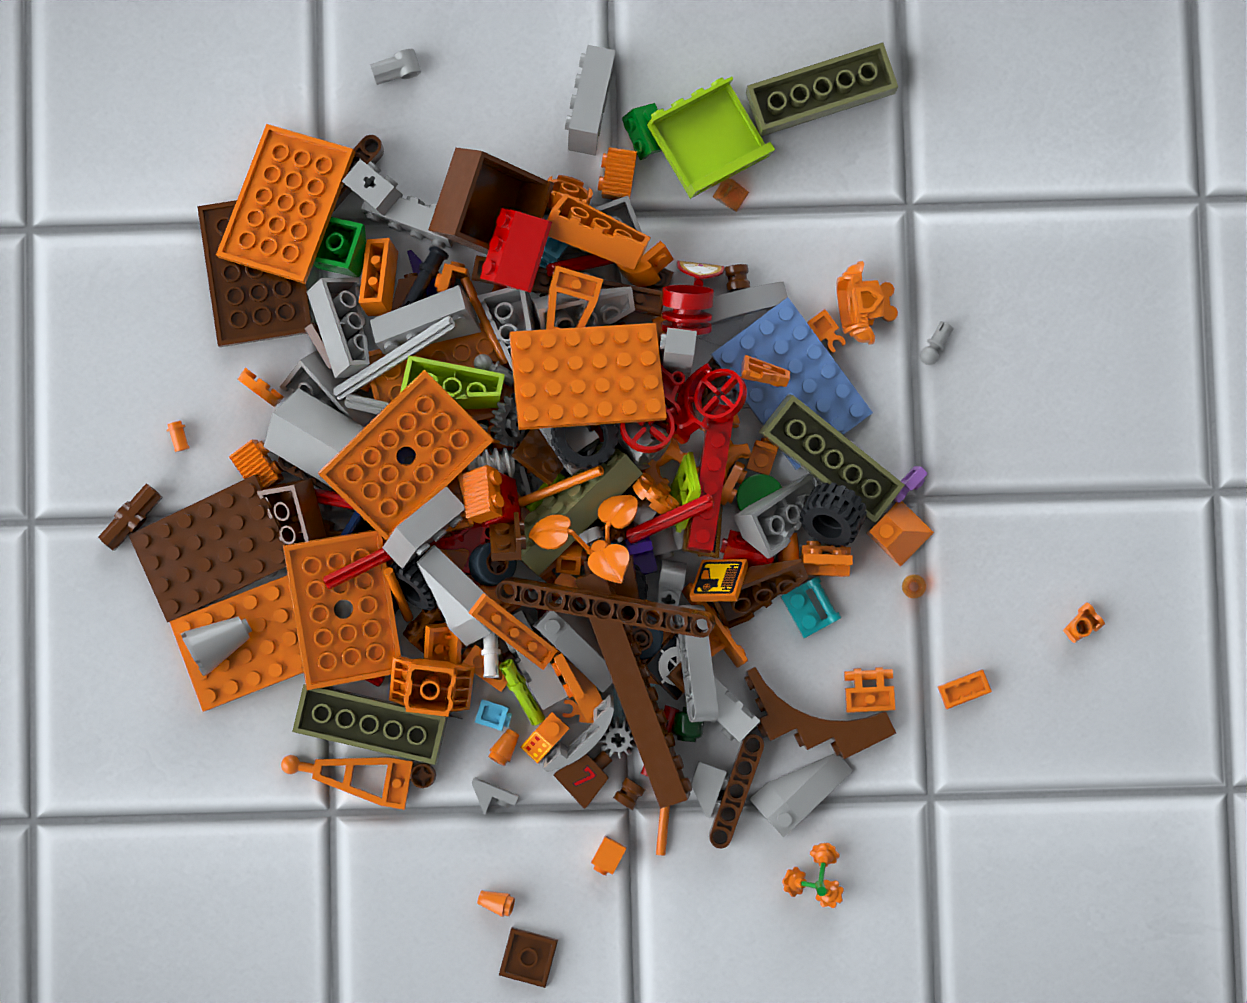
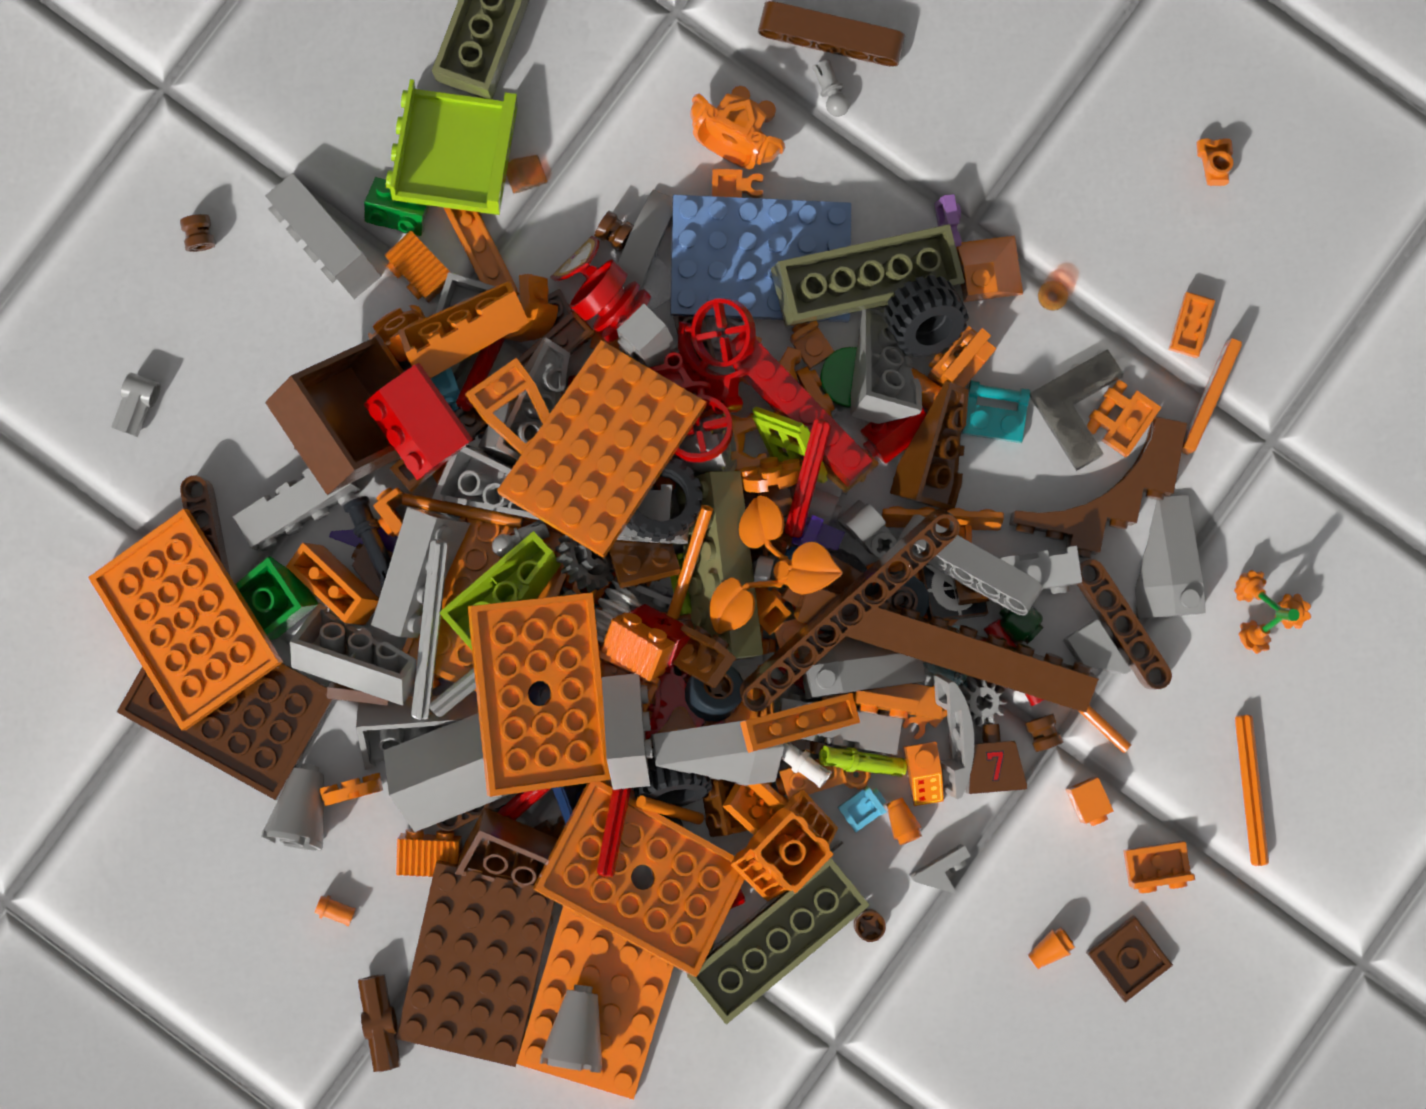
camera: 55 degrees left, 0 degrees up
(222, 366) = (299, 811): none -> light grey cone
(363, 177) = (220, 519): light grey brick -> none
(396, 780) = (858, 961): orange plate -> none
(507, 700) = (859, 782): none -> orange plate
(532, 21) = (197, 233): none -> reddish brown wheel
(600, 930) = (1158, 866): none -> orange bracket
(660, 205) = (479, 247): none -> orange tile
(695, 954) = (1251, 790): none -> orange axle
(719, 580) = (903, 479): tile -> none
(764, 372) = (731, 274): orange wing -> none
(848, 640) = (1056, 406): none -> clear smoke plate
(926, 736) = (1210, 395): none -> orange tile
(971, 316) = (831, 34): none -> reddish brown beam

